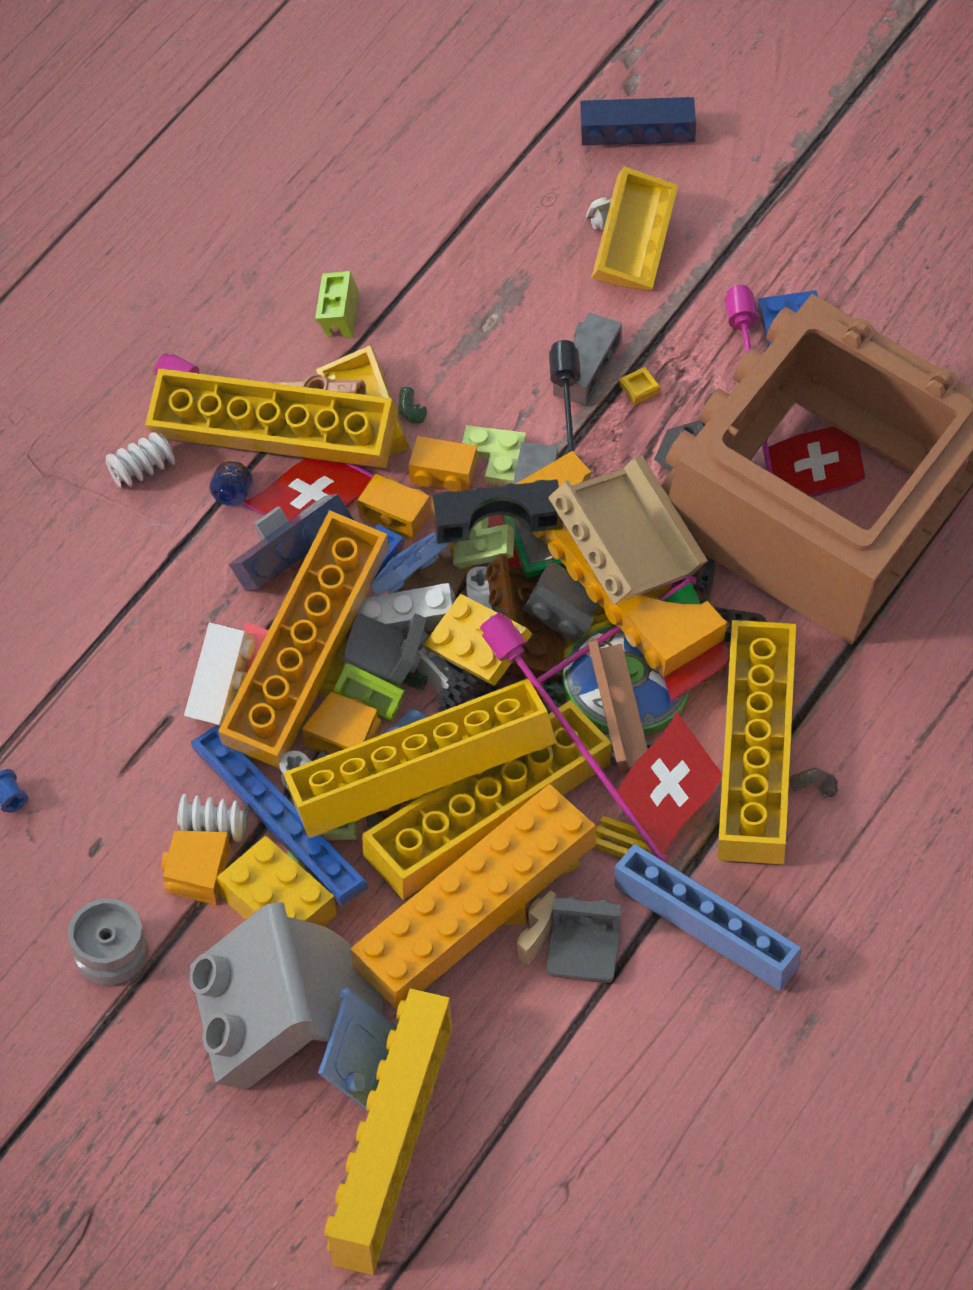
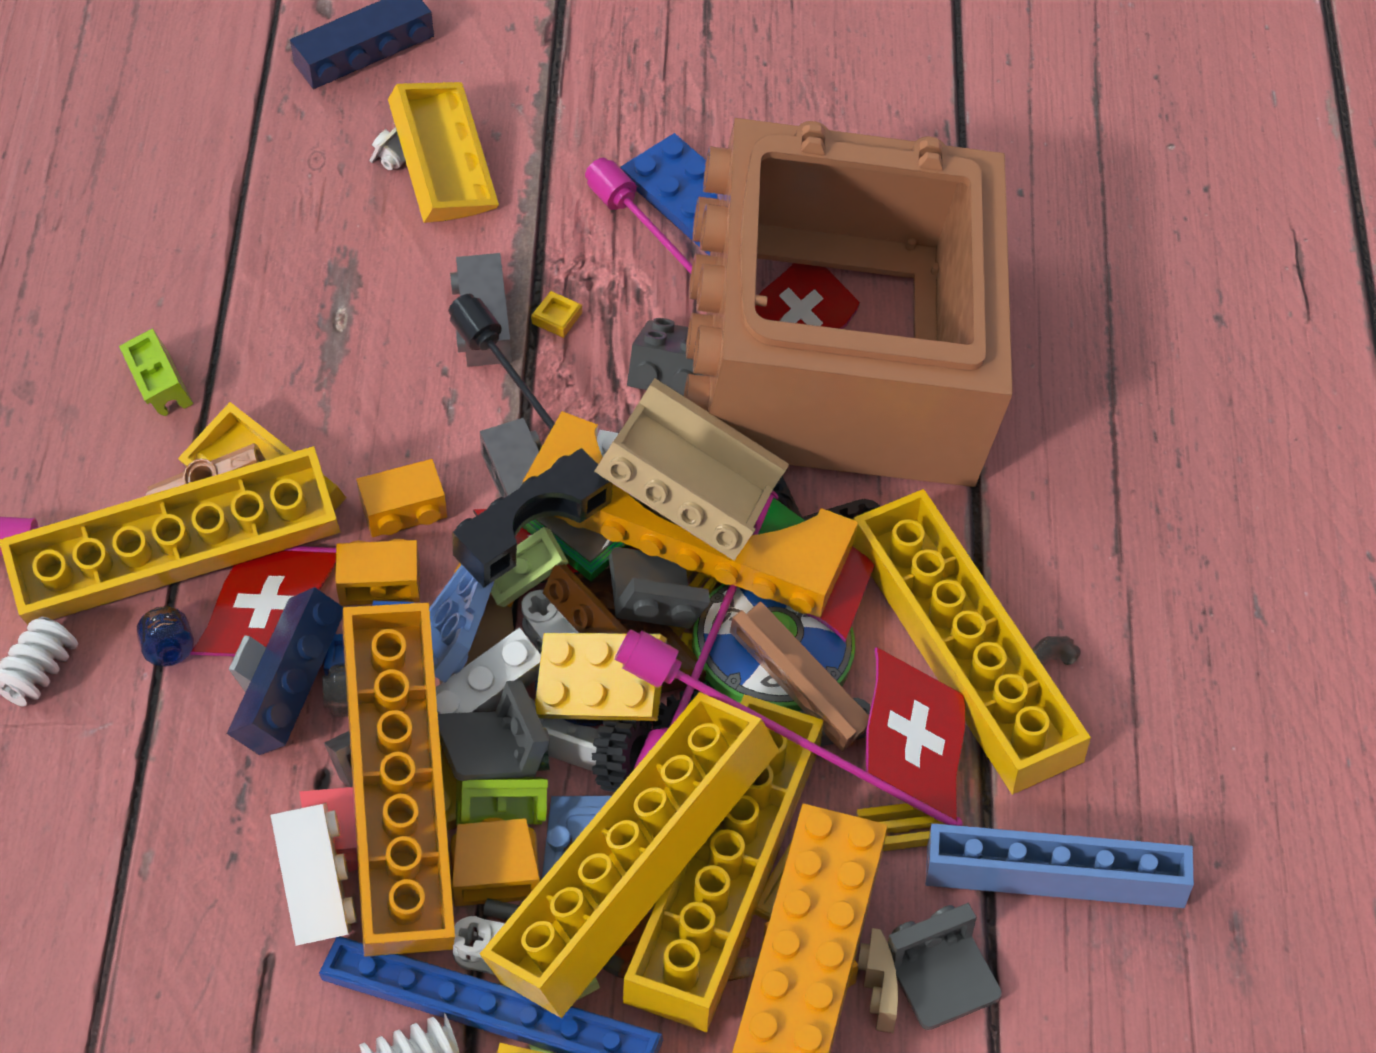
camera: 35 degrees left, 0 degrees up
(407, 409) = (329, 456): clear green arm -> none
(498, 447) = (452, 450): yellowish green plate -> none

